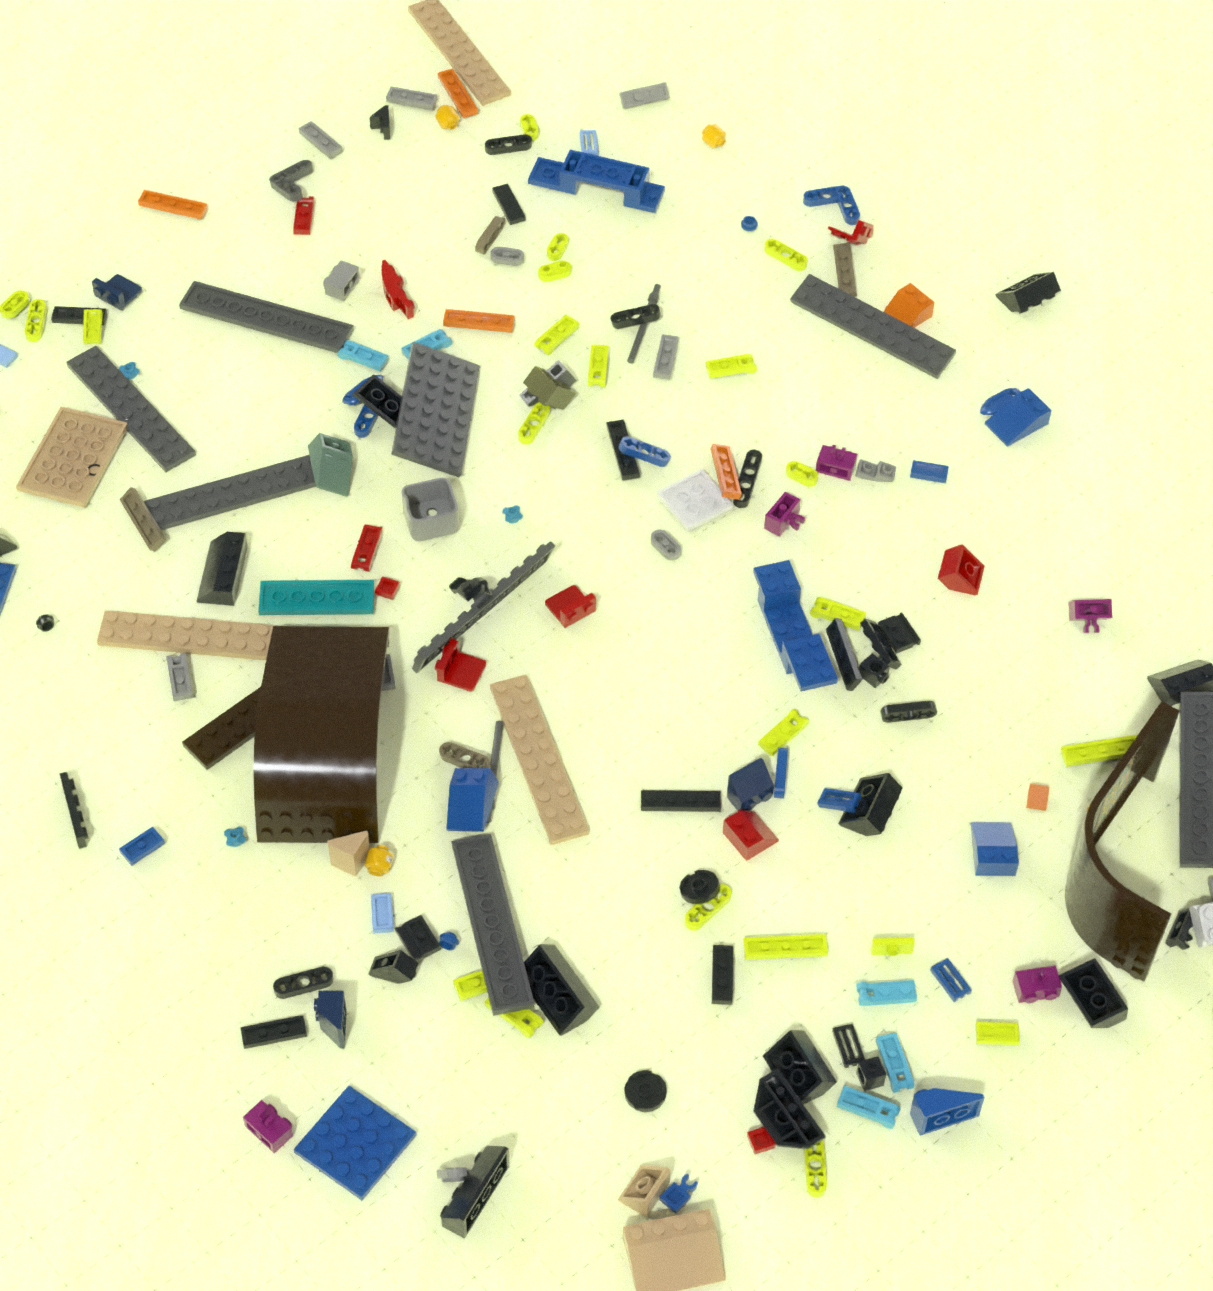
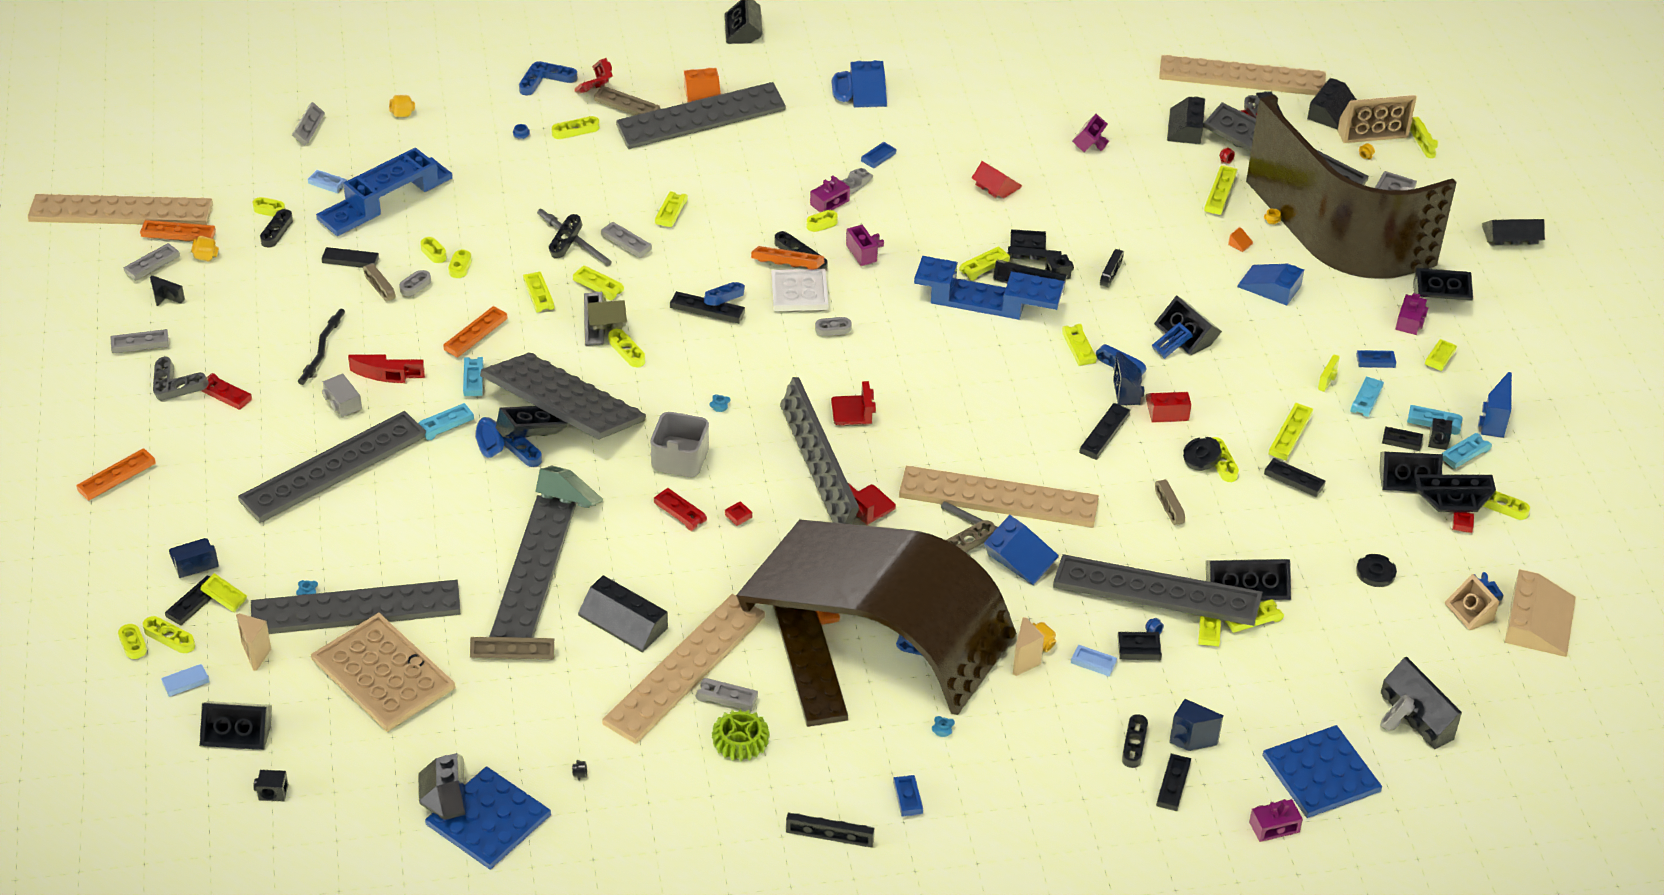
camera: 60 degrees left, 10 degrees down
(45, 367) = (254, 639): none -> tan slope
(141, 710) = (741, 731): none -> lime gear
(316, 597) = (709, 565): teal plate -> none
(361, 248) = (310, 369): none -> black bar
(394, 967) = (1160, 672): slope -> none
(475, 588) = (800, 450): black plate -> none
(616, 888) = (1170, 502): none -> dark tan beam

